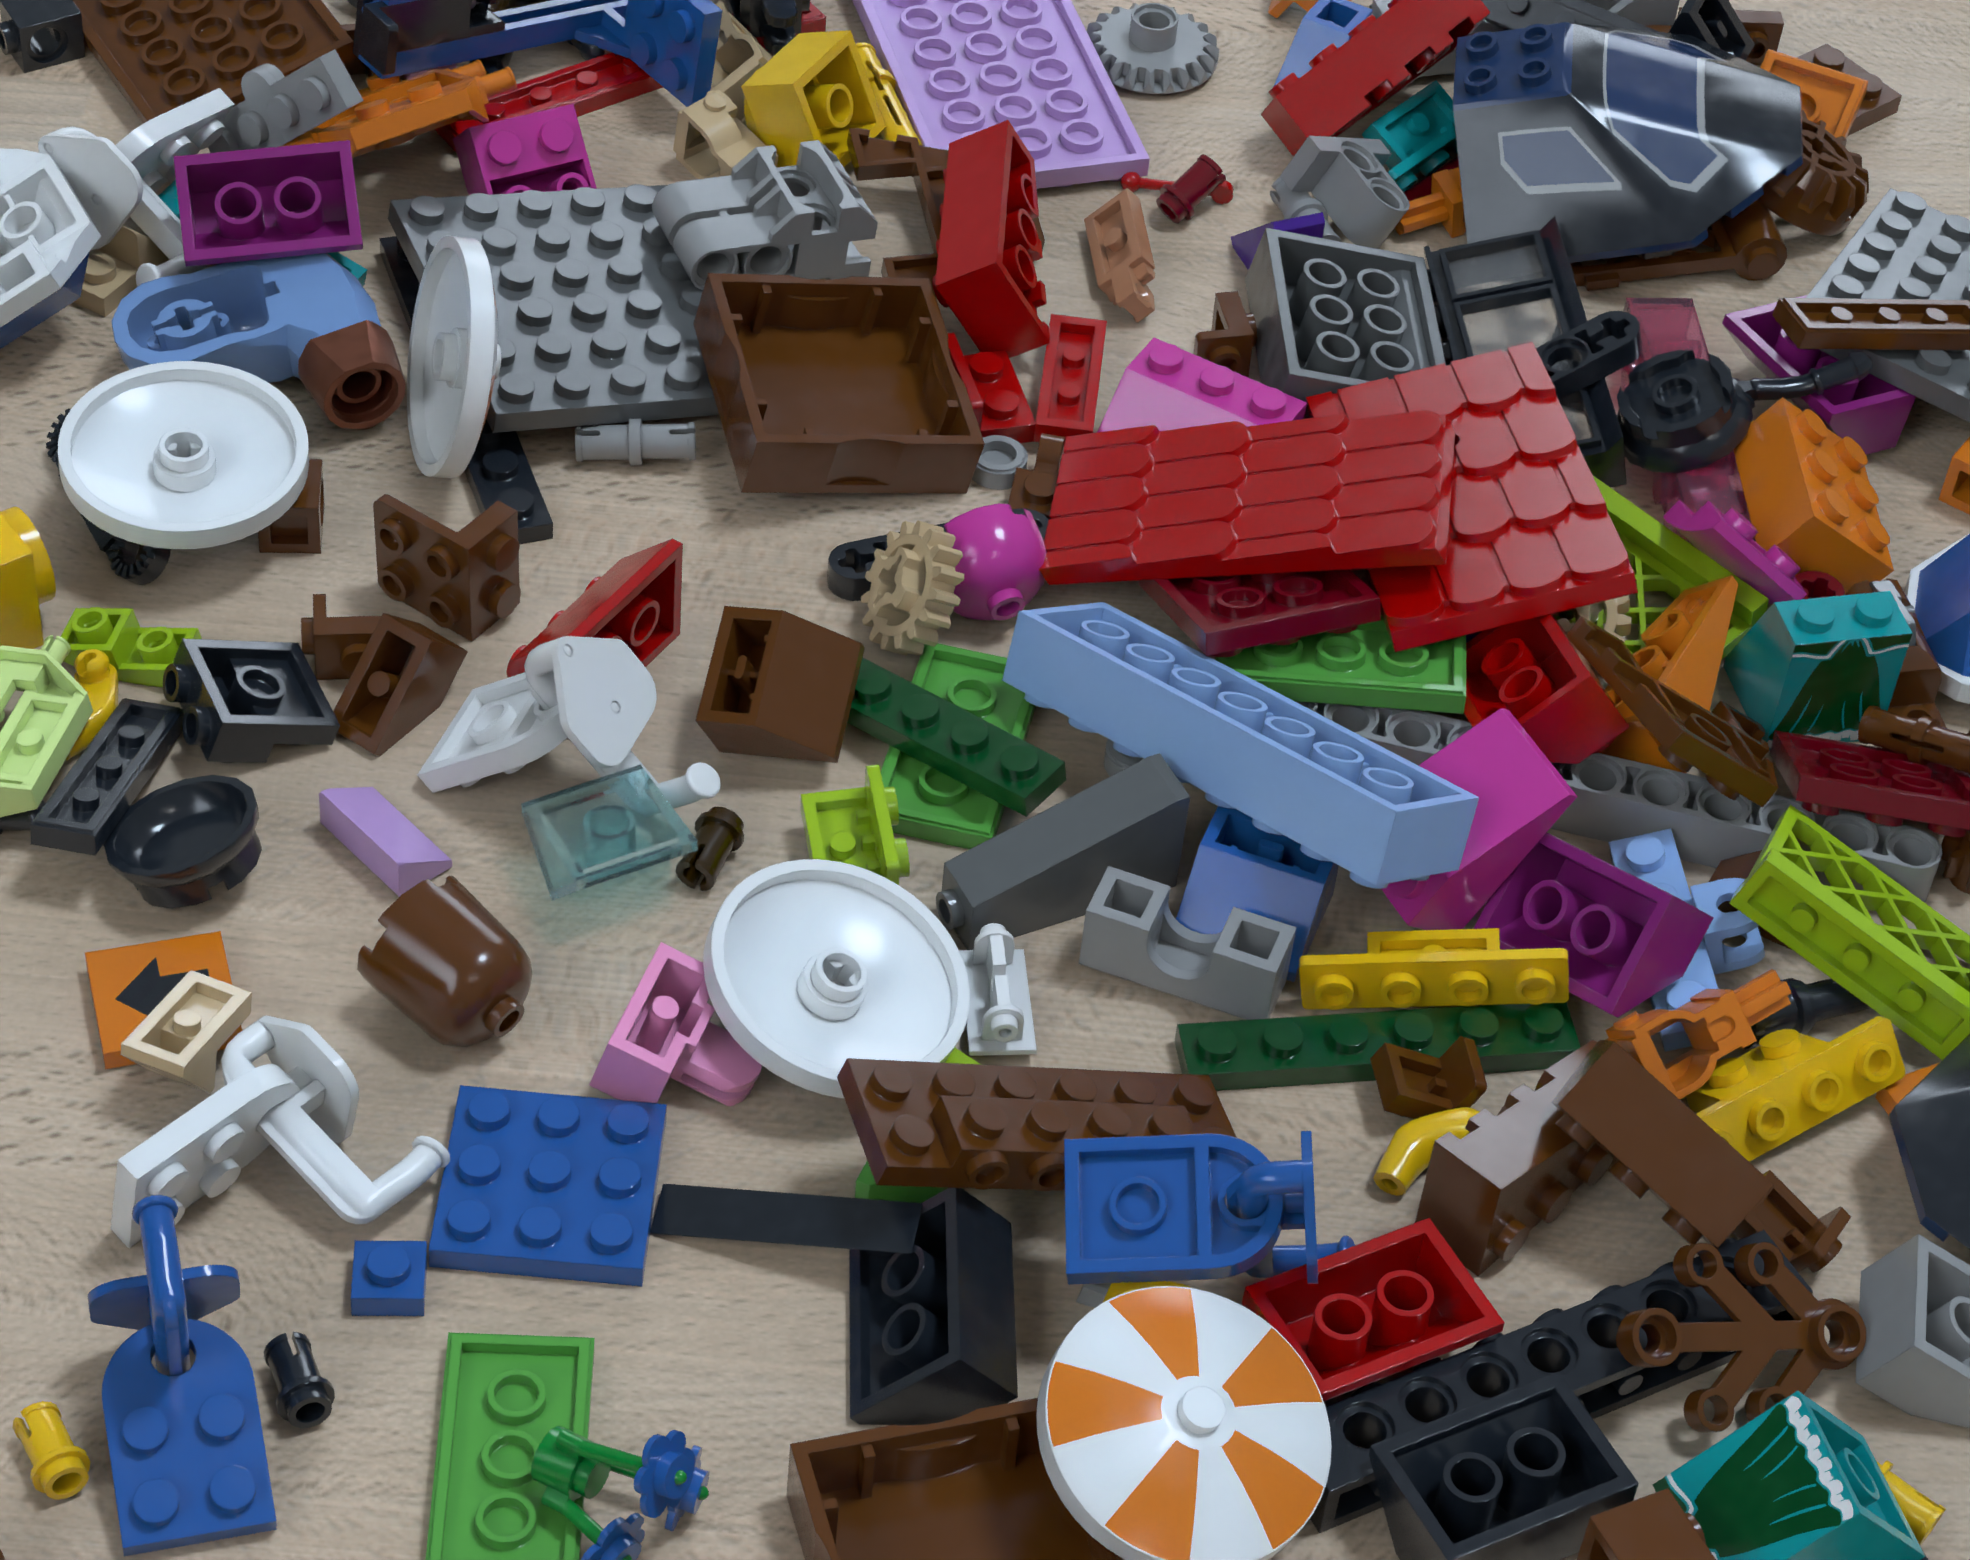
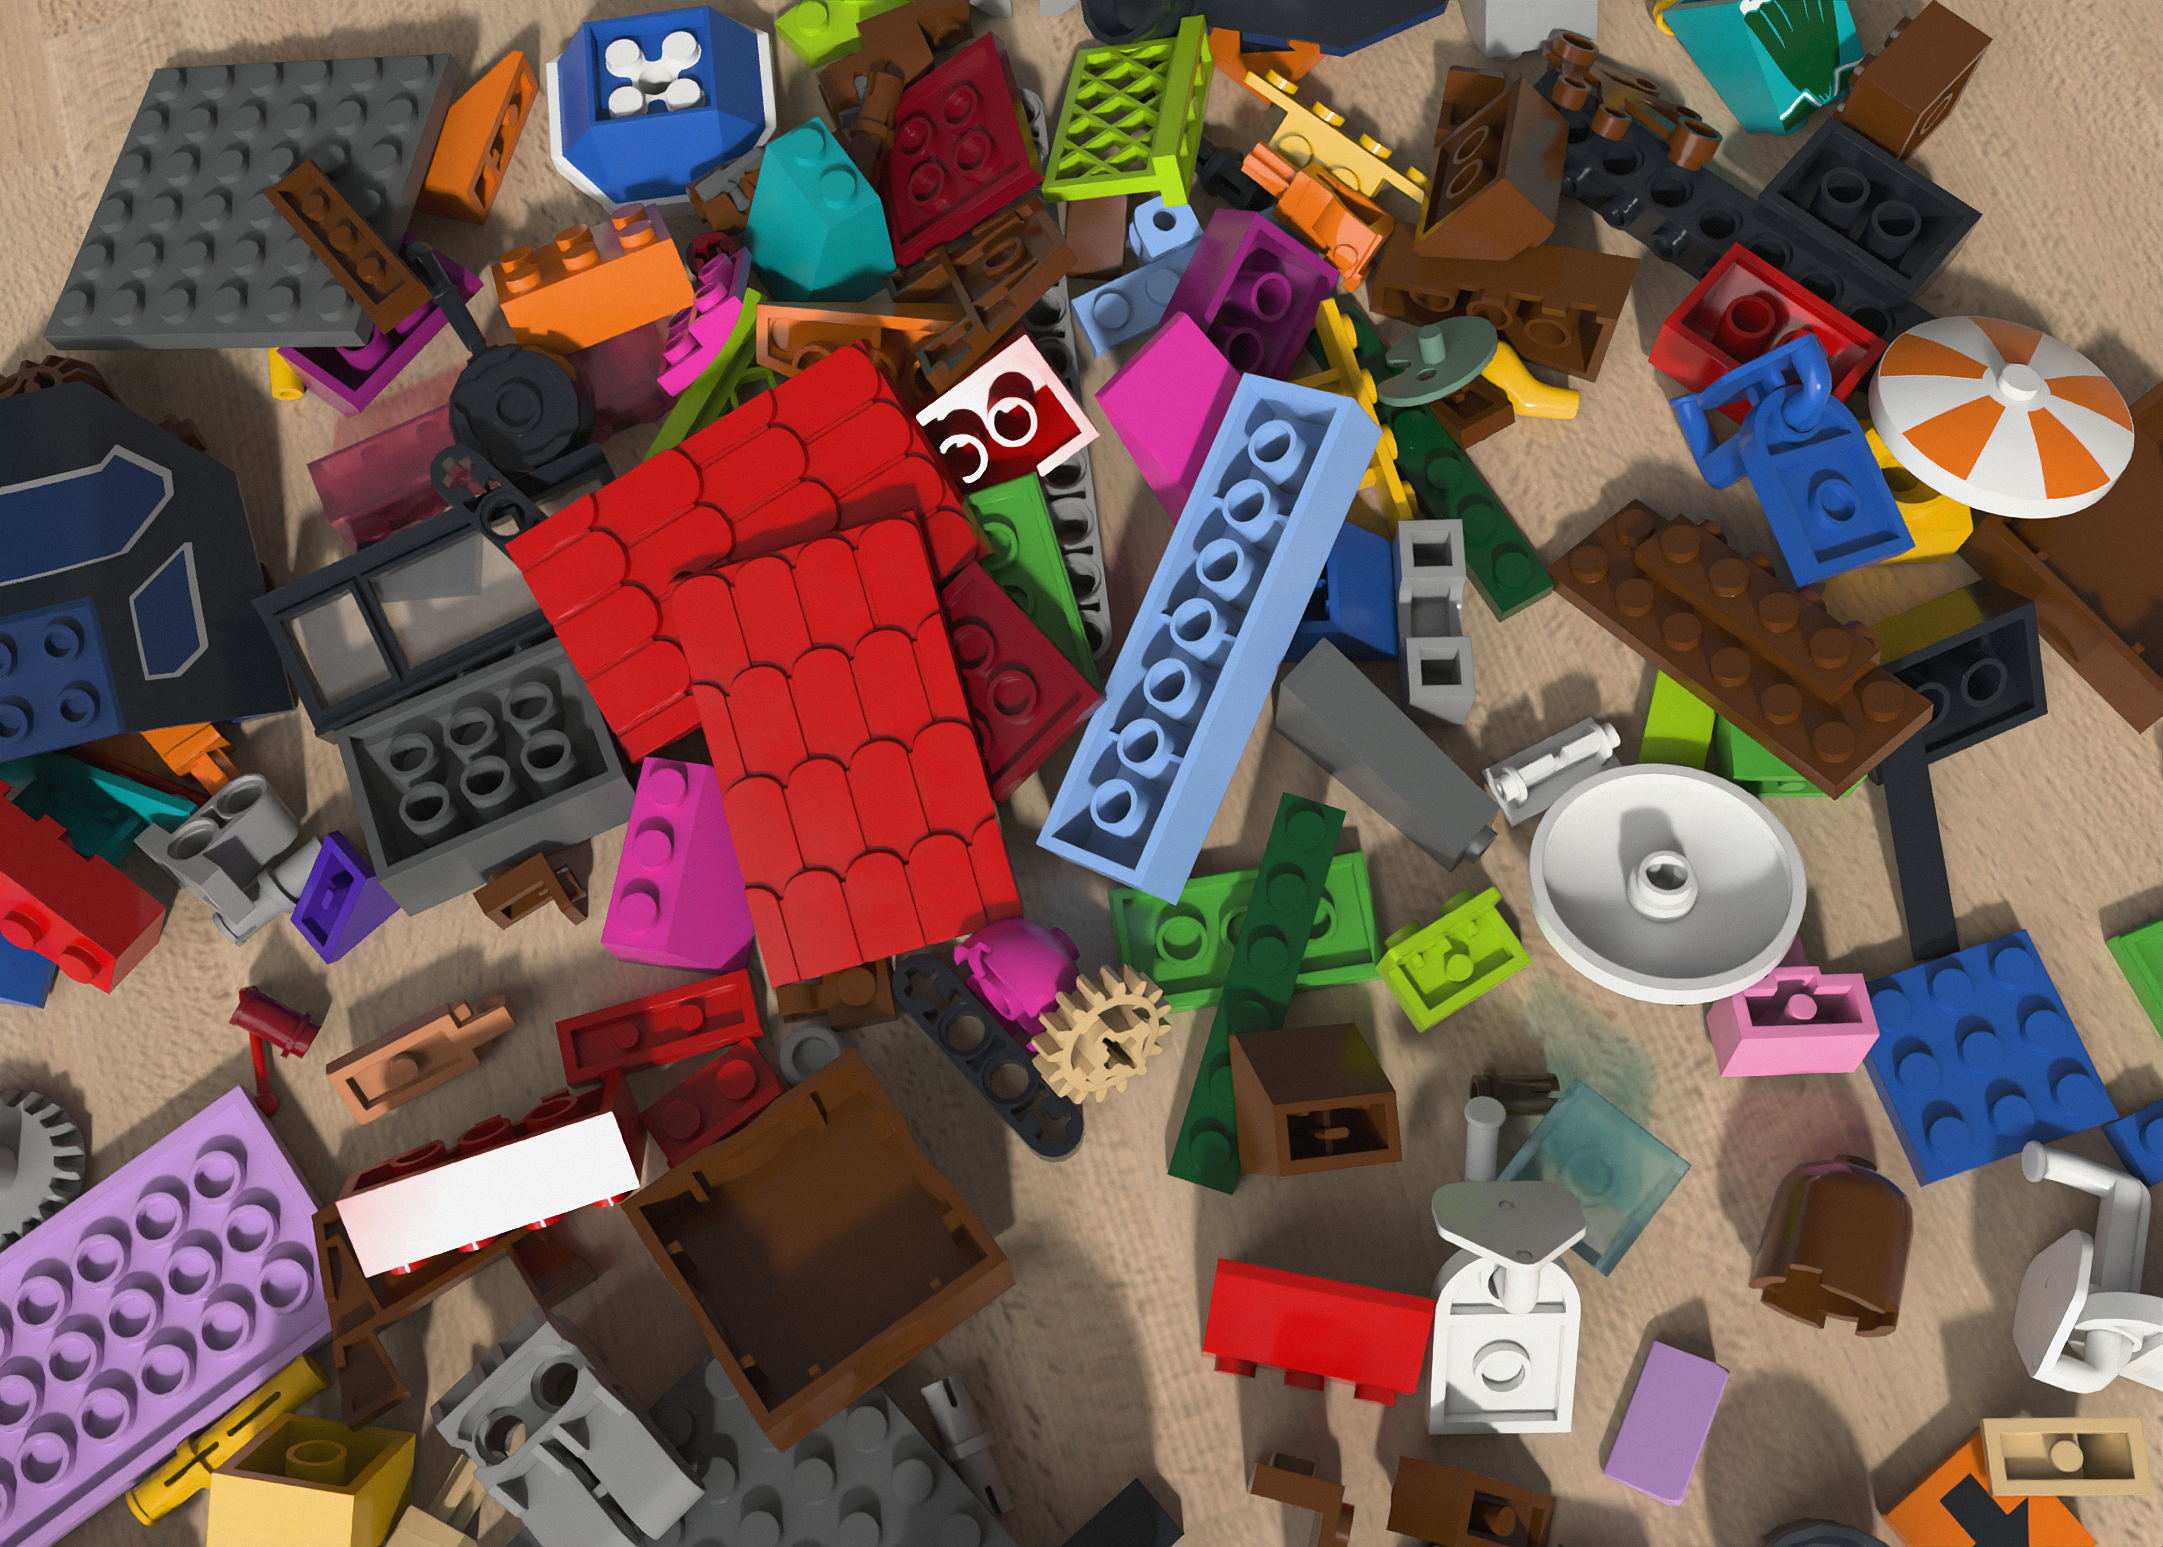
camera: 100 degrees left, 25 degrees up
(1474, 1056) = (1448, 350): none -> sand green piece

